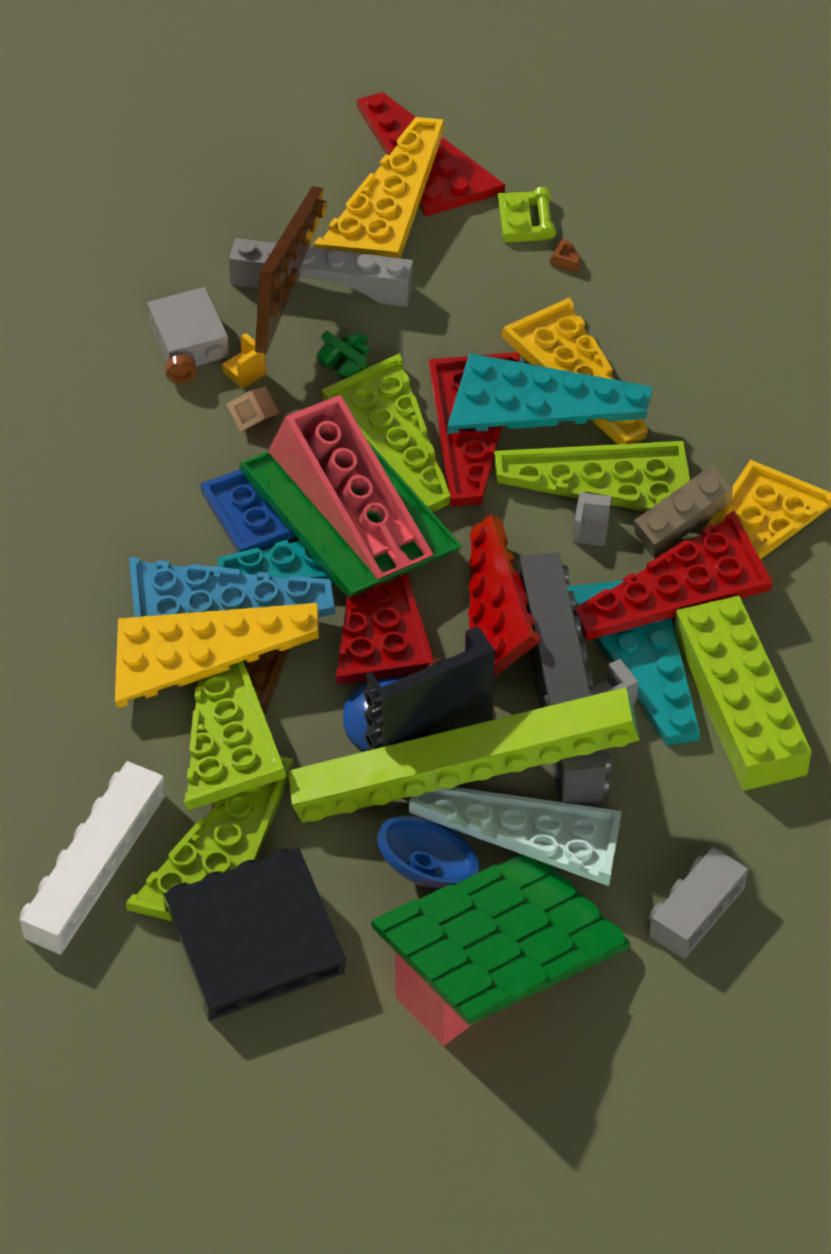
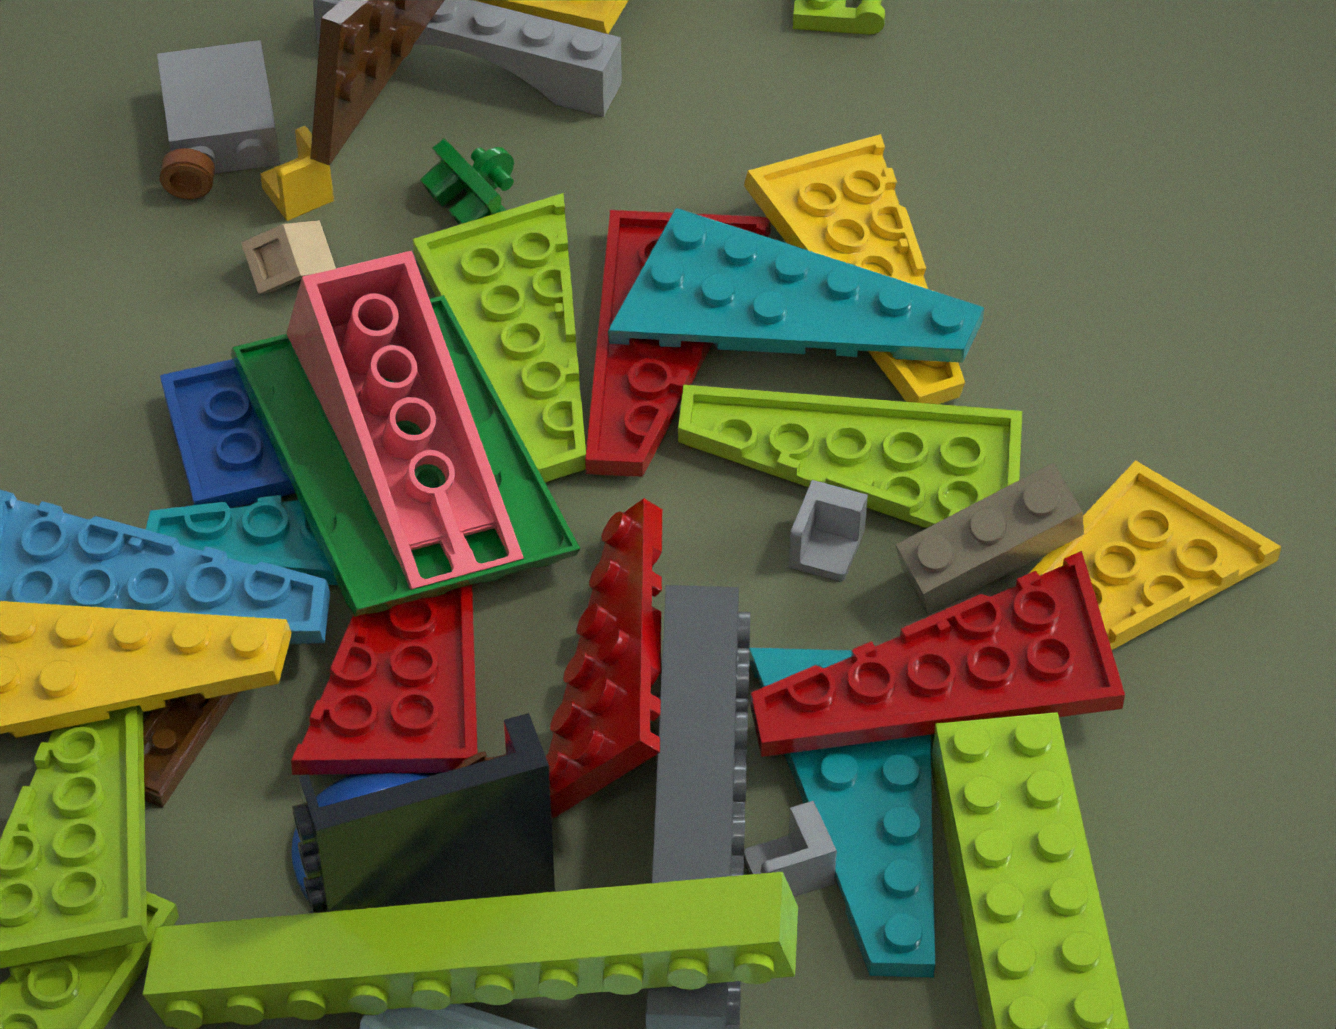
camera: 10 degrees right, 0 degrees up
(566, 257) = (893, 66): dark orange tile -> none

